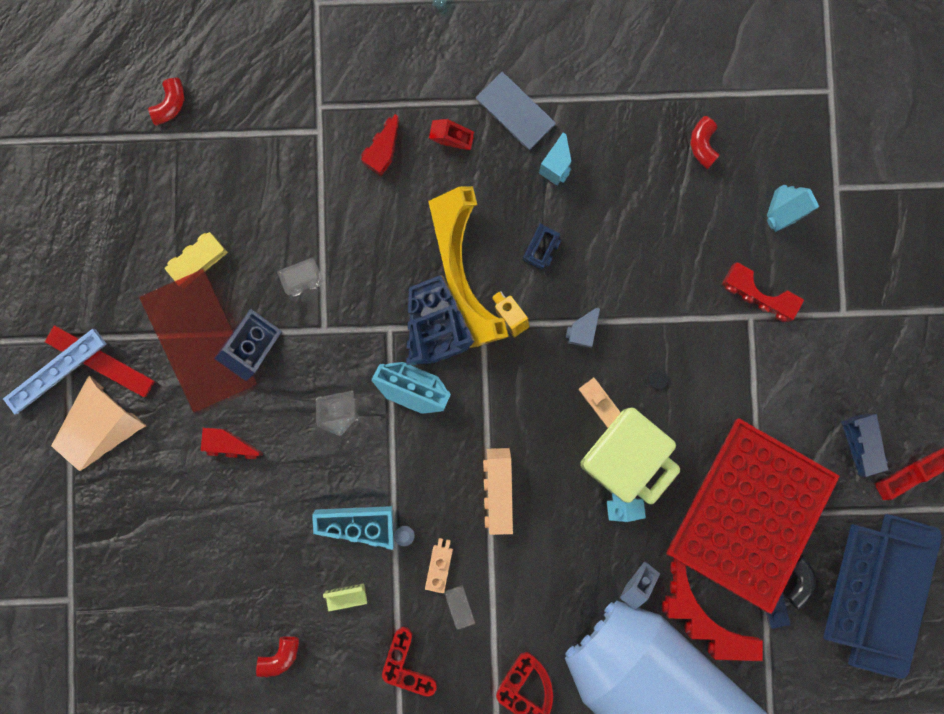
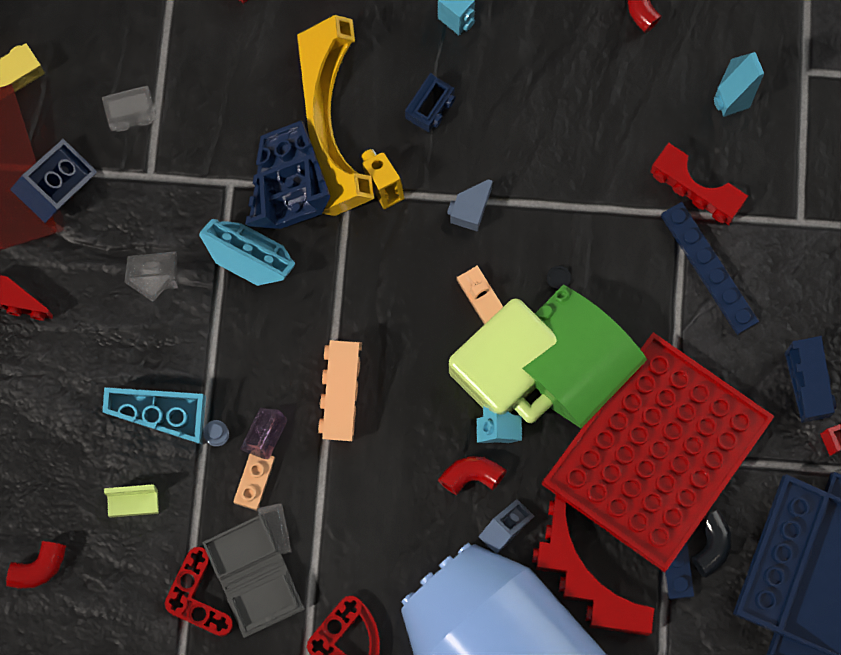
camera: 10 degrees right, 10 degrees down
(442, 532) = (264, 433): none -> clear purple slope
(447, 645) = (253, 575): none -> dark grey piece
(608, 543) = (471, 469): none -> red cylinder
(693, 447) = (587, 360): none -> bright green slope
(776, 359) = (709, 268): none -> dark blue plate

